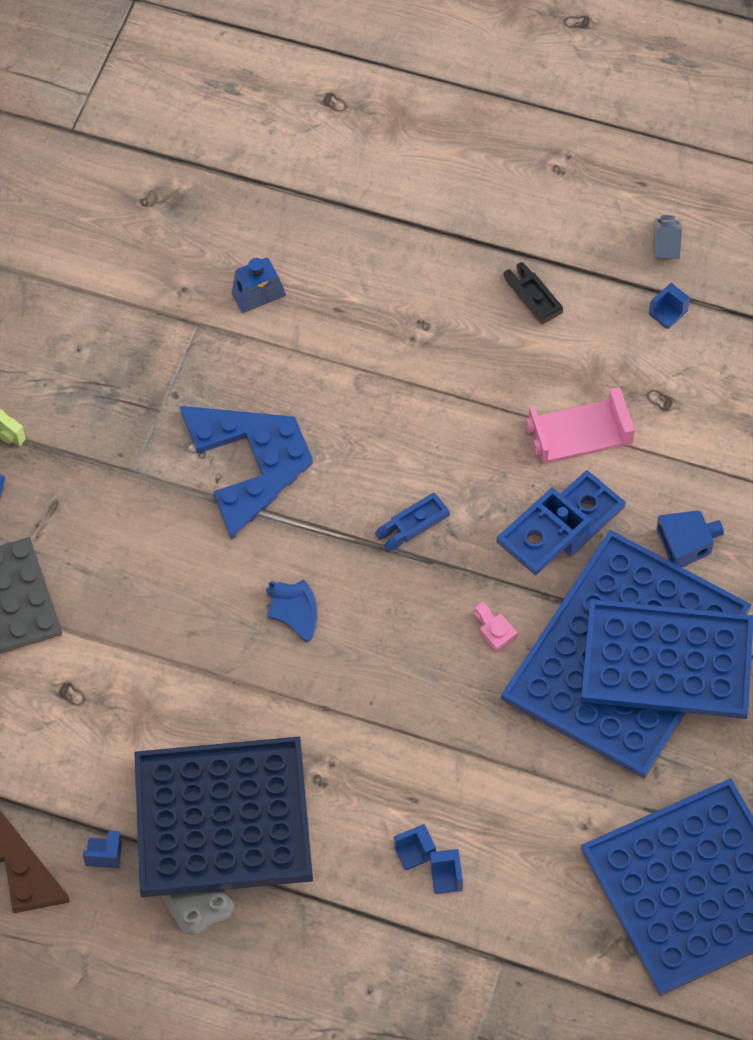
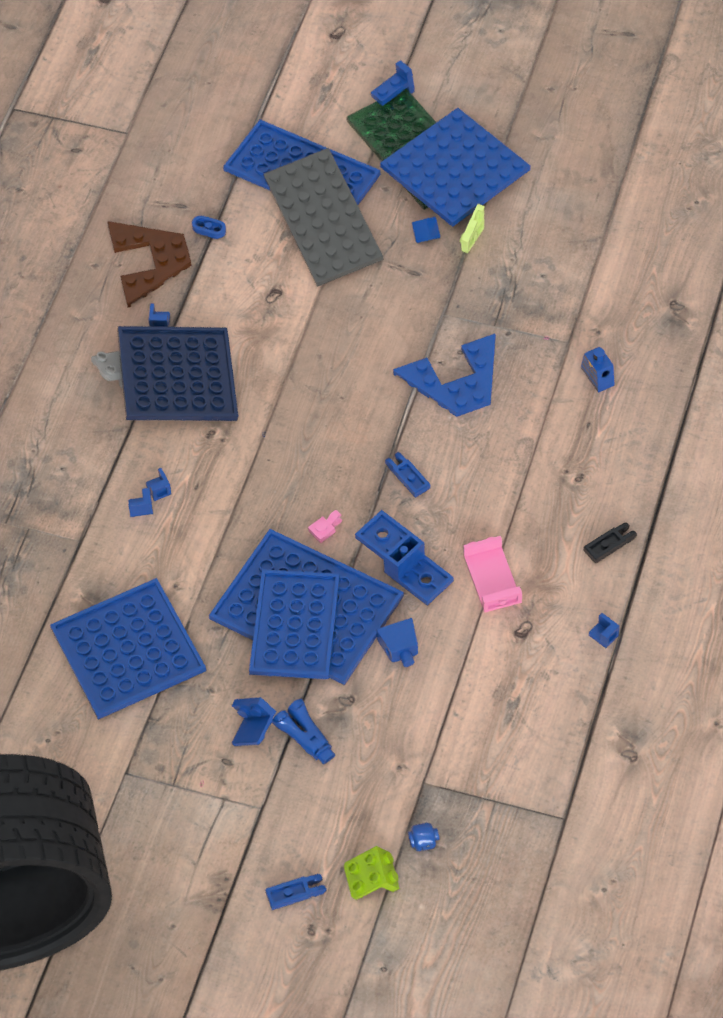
camera: 90 degrees right, 5 degrees down
(294, 606) = (338, 410): blue arm -> none
(667, 237) = (667, 628): sand blue slope -> none

